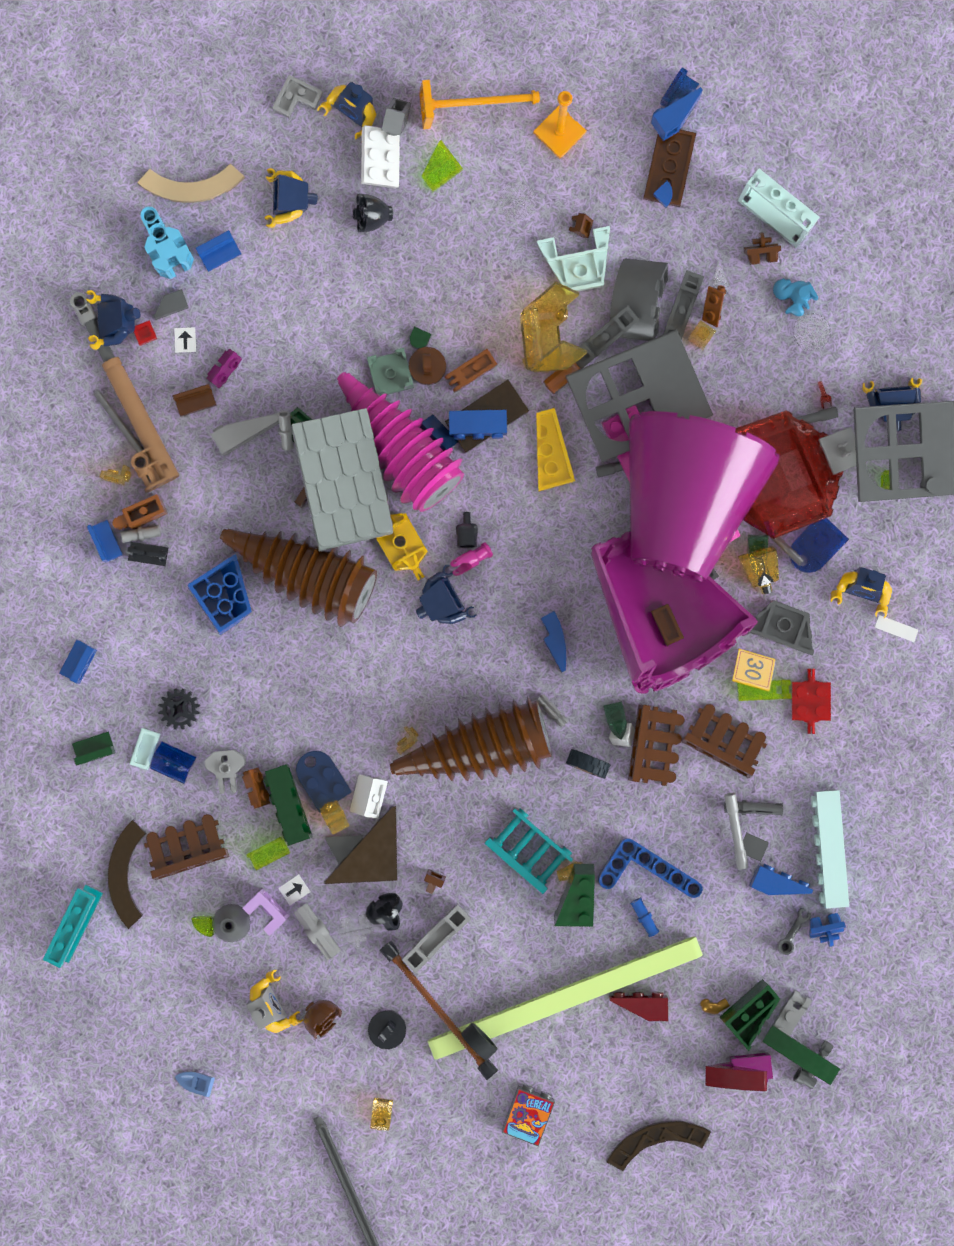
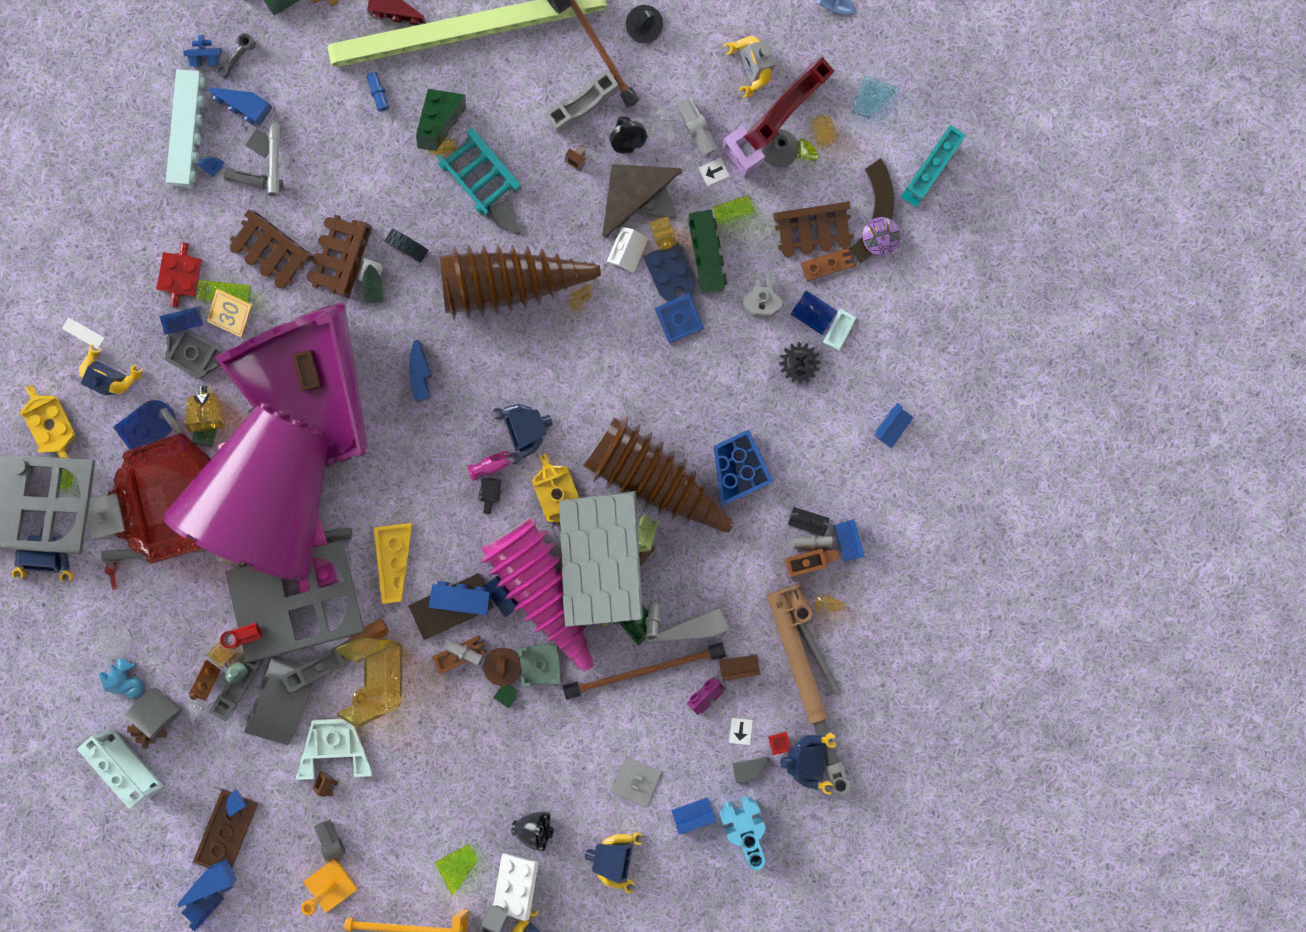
camera: 165 degrees left, 0 degrees up
(93, 748) = (889, 337): dark green panel -> none
(115, 849) = (881, 236): none -> medium lavender dish
(145, 991) = (872, 96): none -> clear light blue wing
(166, 812) = (827, 264): none -> dark orange hinge
(189, 948) = (823, 130): none -> clear yellow brick
(191, 191) = (711, 881): tan tile -> none
(222, 411) = (574, 689): none -> dark orange hose
(243, 940) = (769, 124): none -> dark red arch
(254, 779) = (734, 266): dark orange hinge -> none
(279, 276) = (636, 781): none -> light grey piece
(303, 516) = (646, 533): none -> yellowish green hinge
(306, 735) = (679, 318): none -> blue tile
(320, 1017) = (706, 44): reddish brown cylinder -> none
(466, 372) = (463, 652): none -> light grey pin
(497, 810) = (504, 217): none -> dark grey tile
(552, 710) = (434, 305): light grey axle -> none
(565, 169) = (331, 845): none -> dark grey piece
(650, 865) = (363, 140): blue beam -> none
(683, 354) = (242, 636): none -> red piece
(684, 318) = (236, 672): none -> sand green piece
(759, 267) = (152, 713): none -> dark grey slope
(798, 816) = (211, 165): none -> blue tile
(799, 655) = (181, 320): none -> clear blue panel
(925, 542) = (37, 413): none -> yellow plate

